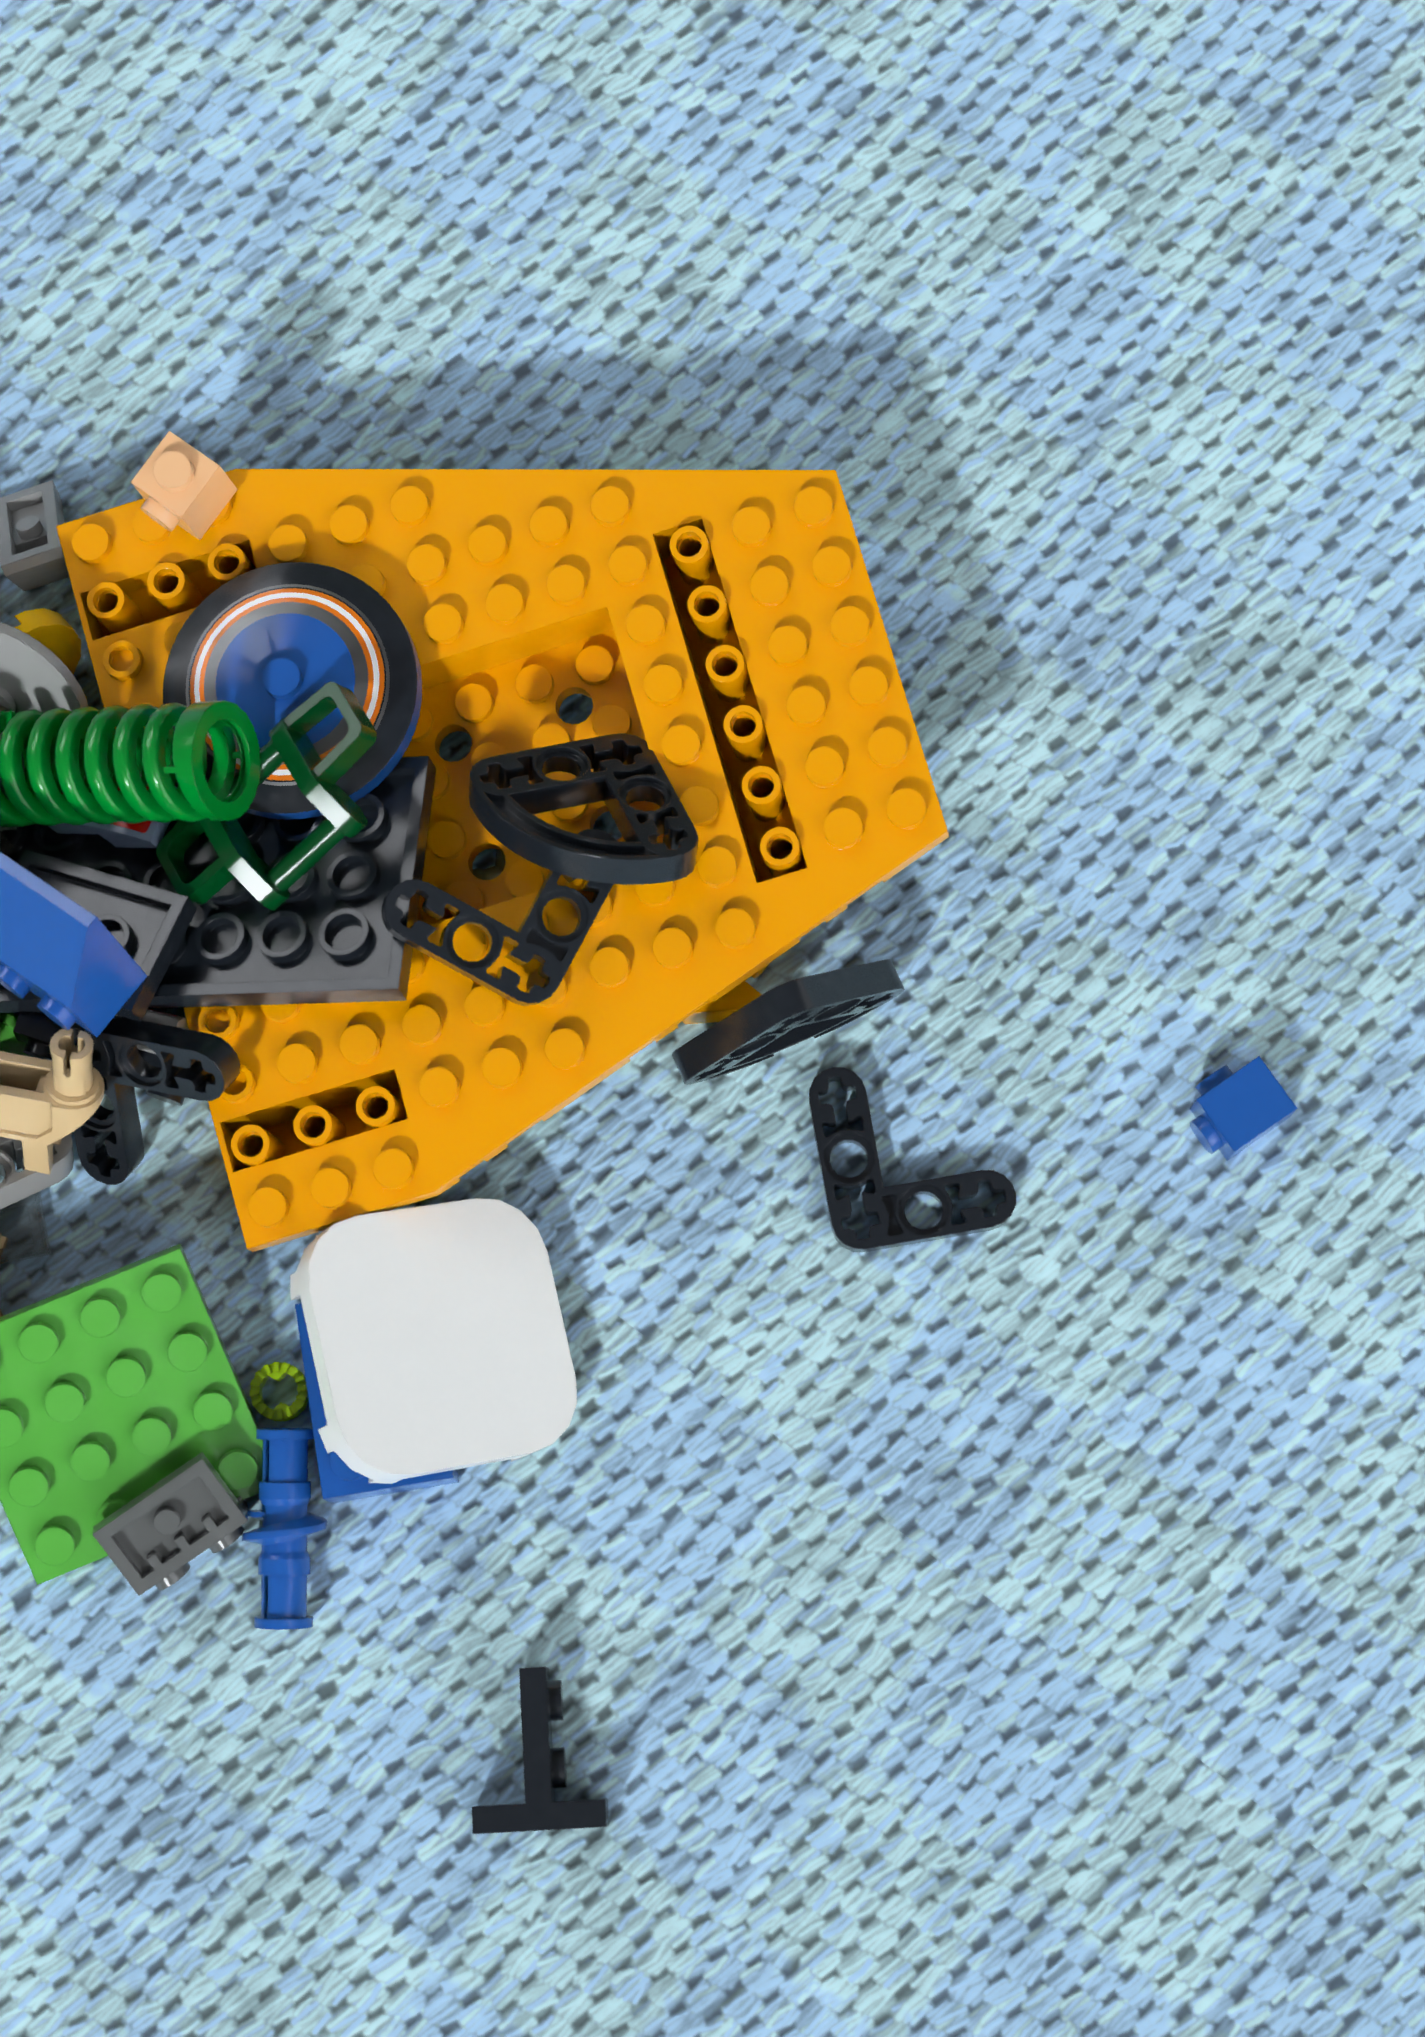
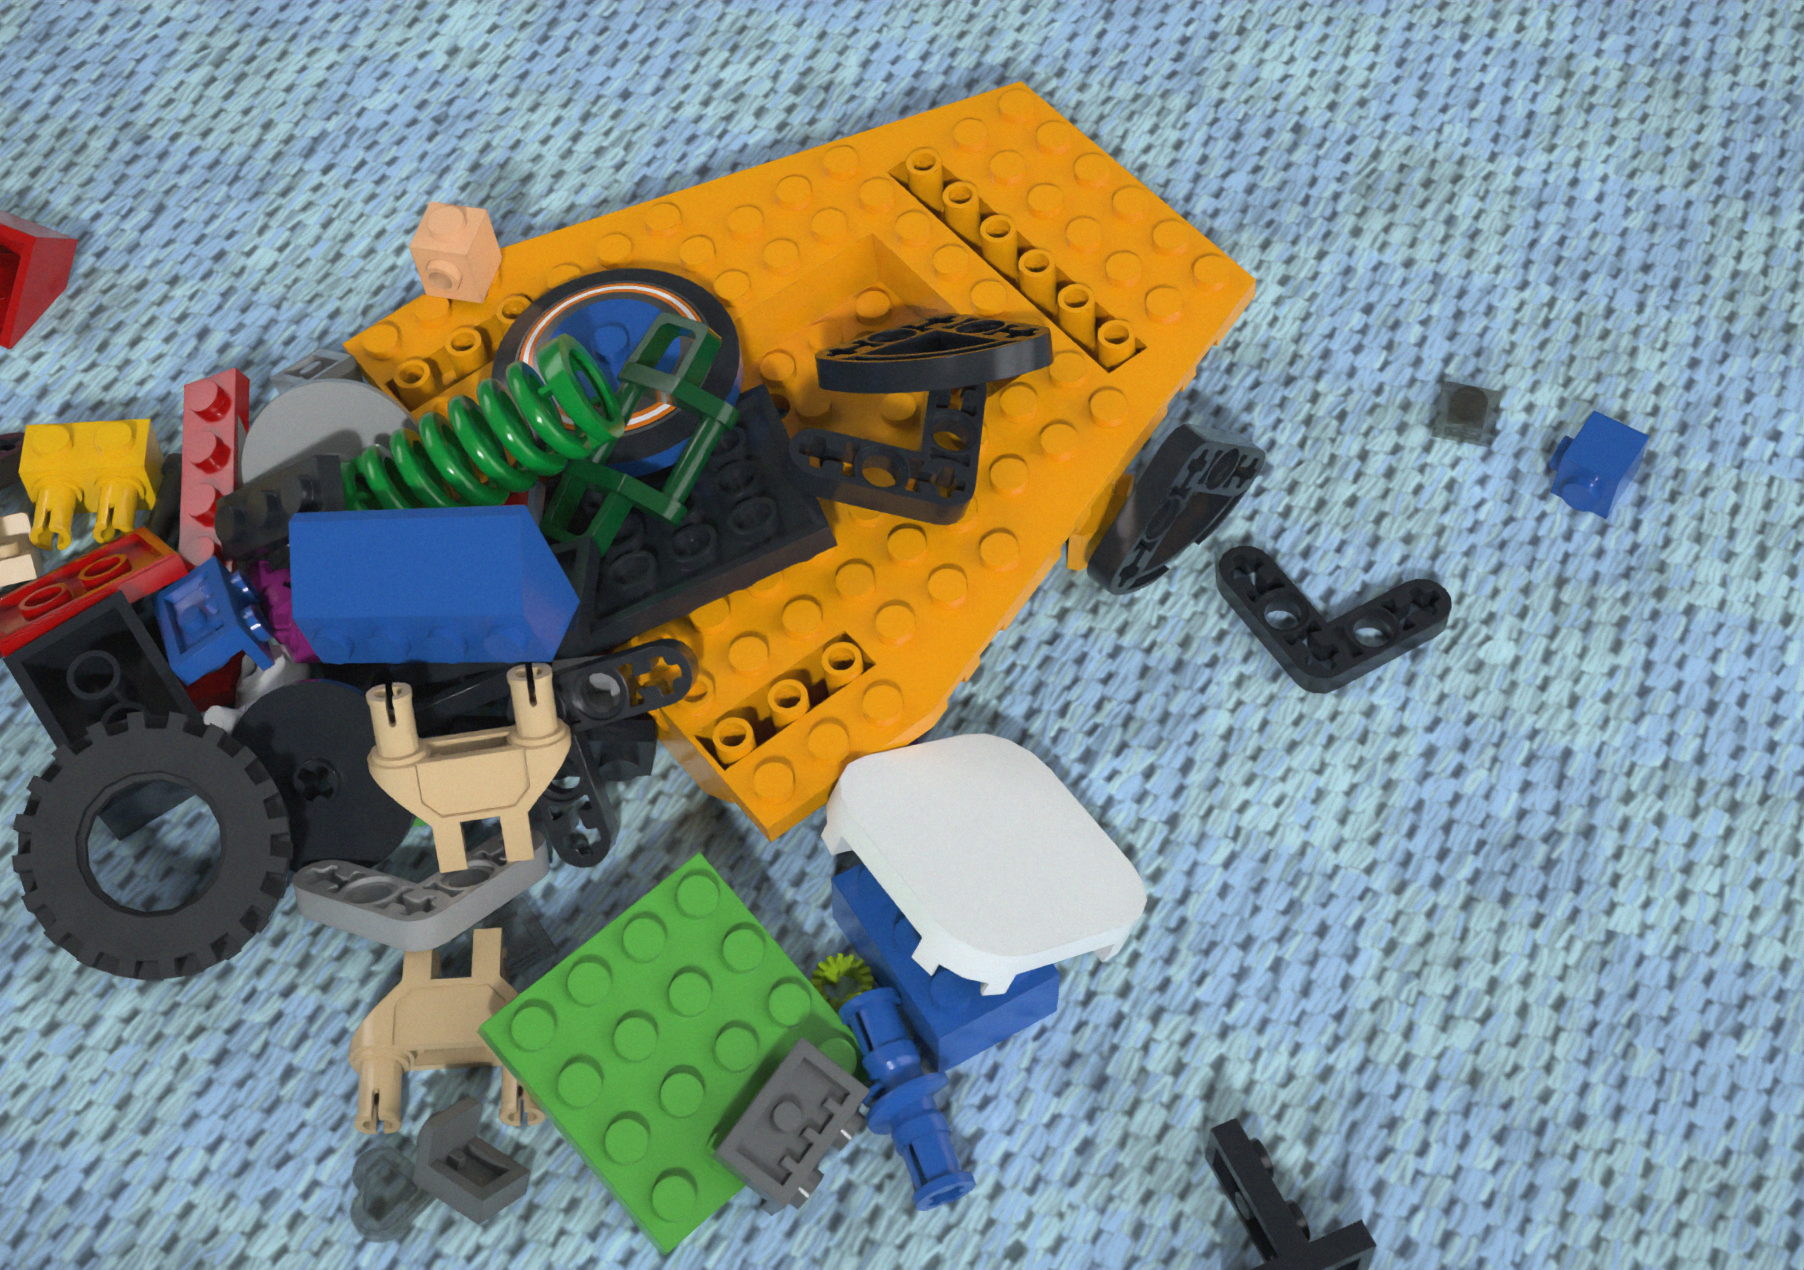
camera: 25 degrees left, 25 degrees down
(1151, 988) = (1466, 414): none -> clear smoke plate

